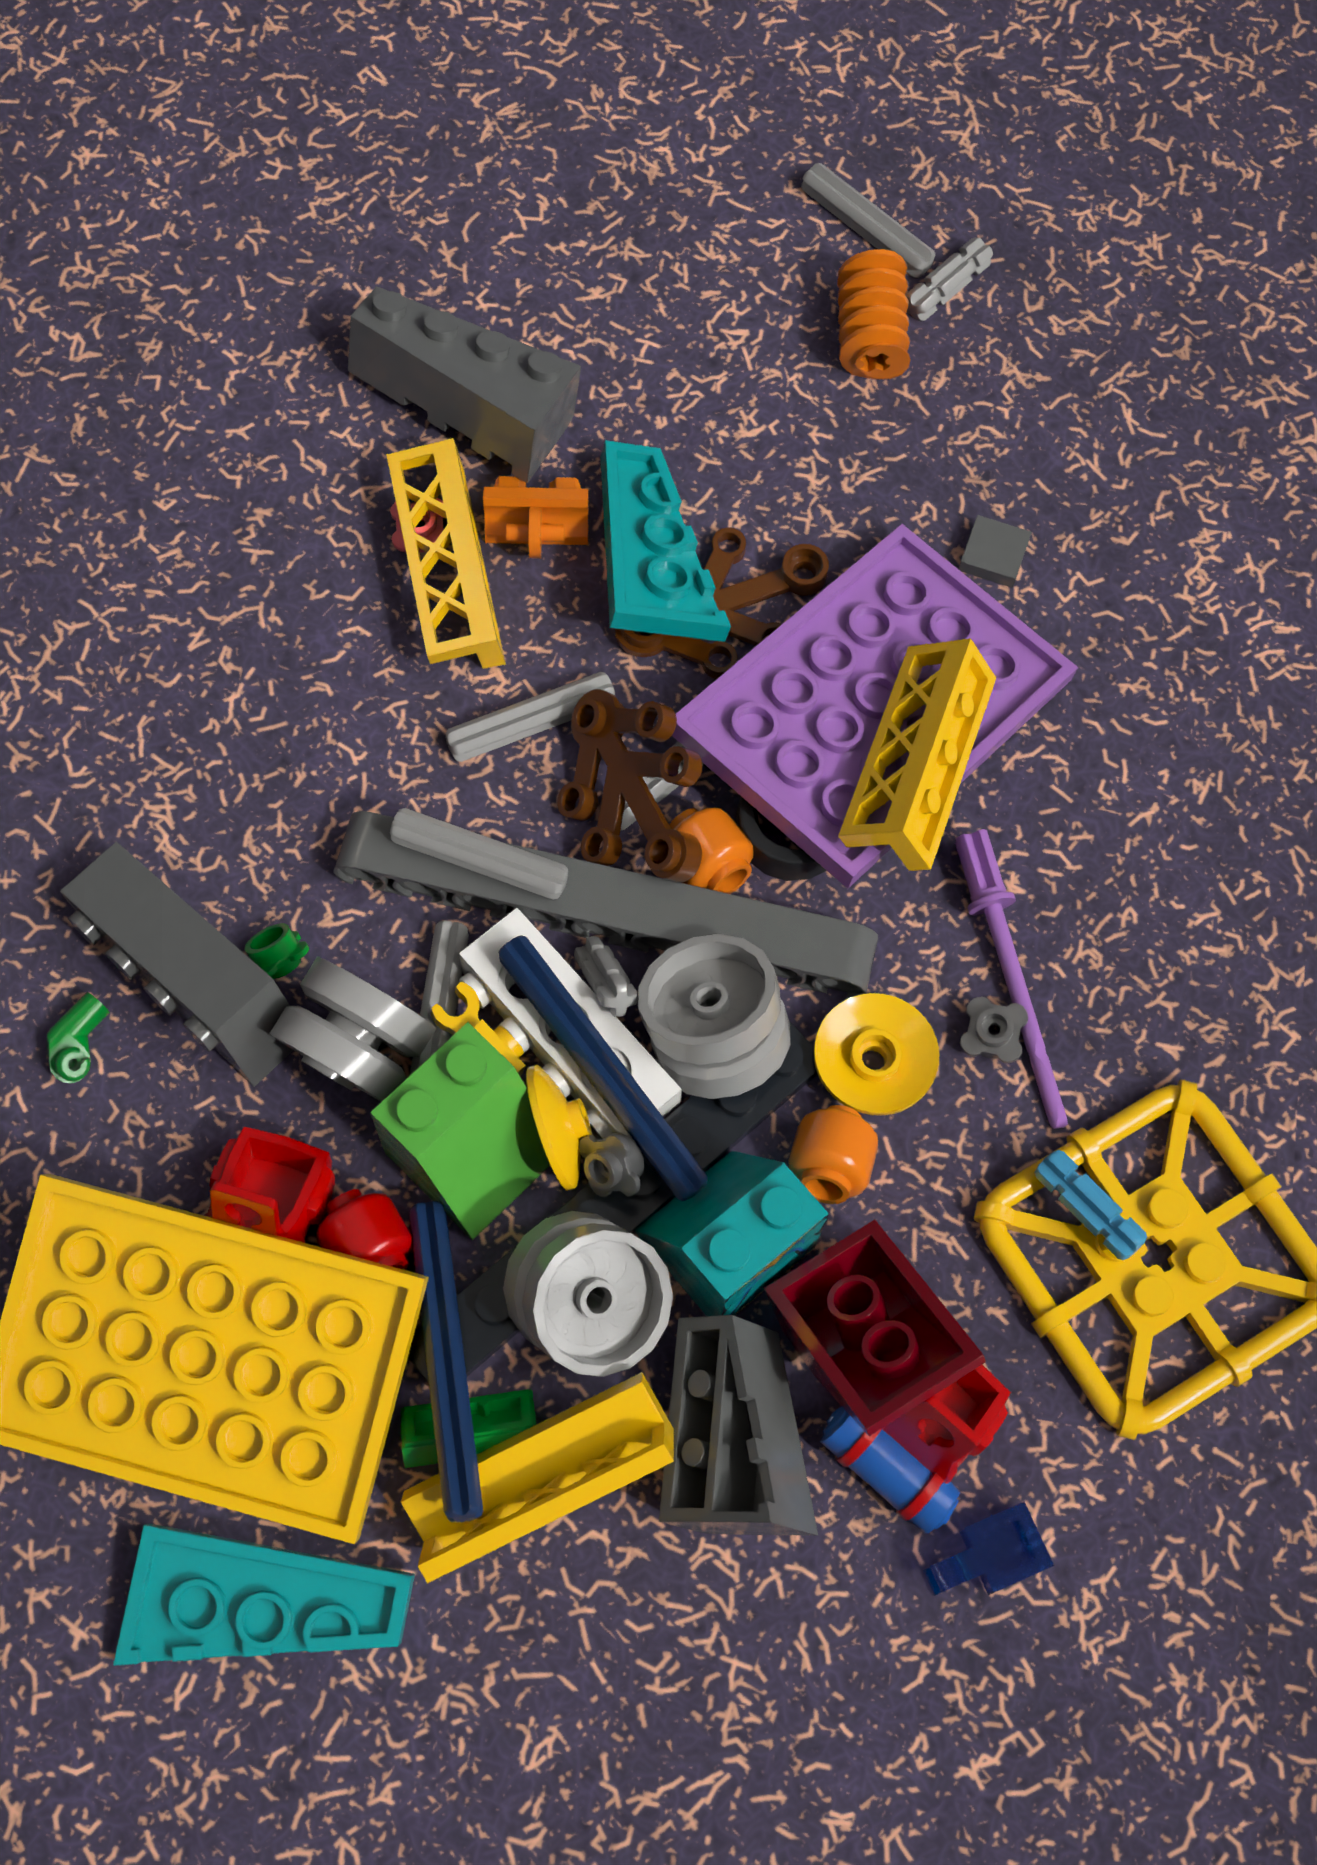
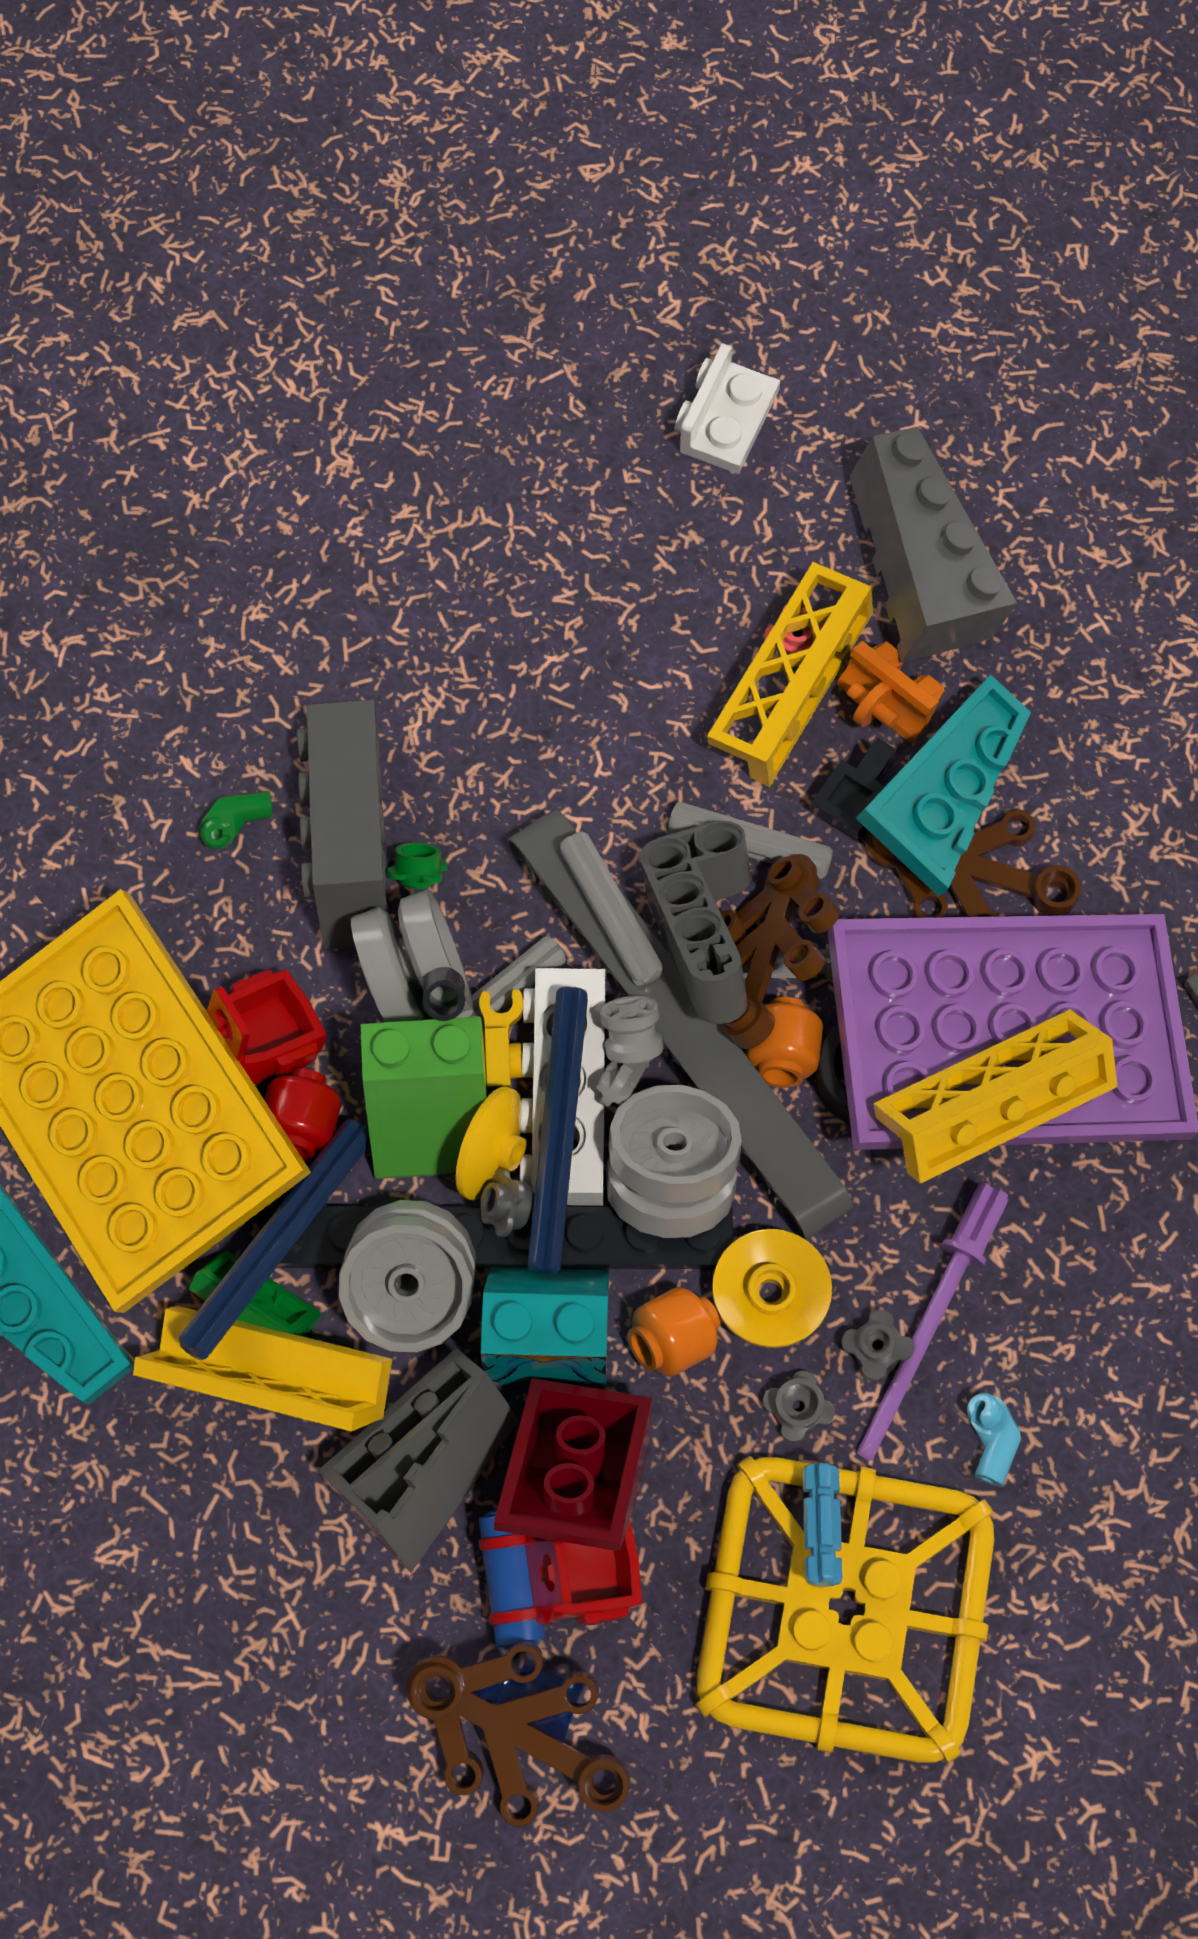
camera: 45 degrees right, 0 degrees up
(203, 393) = (725, 412): none -> white bracket
(435, 1032) = (444, 1010): none -> black hinge
(520, 795) = (682, 882): none -> dark grey beam
(580, 614) = (852, 789): none -> black plate
(587, 937) = (632, 1029): none -> light grey wheel
(991, 1118) = (802, 1389): none -> flat silver plate
(1002, 1587) = (509, 1727): none -> reddish brown plant
(1142, 1022) = (997, 1433): none -> medium azure arm

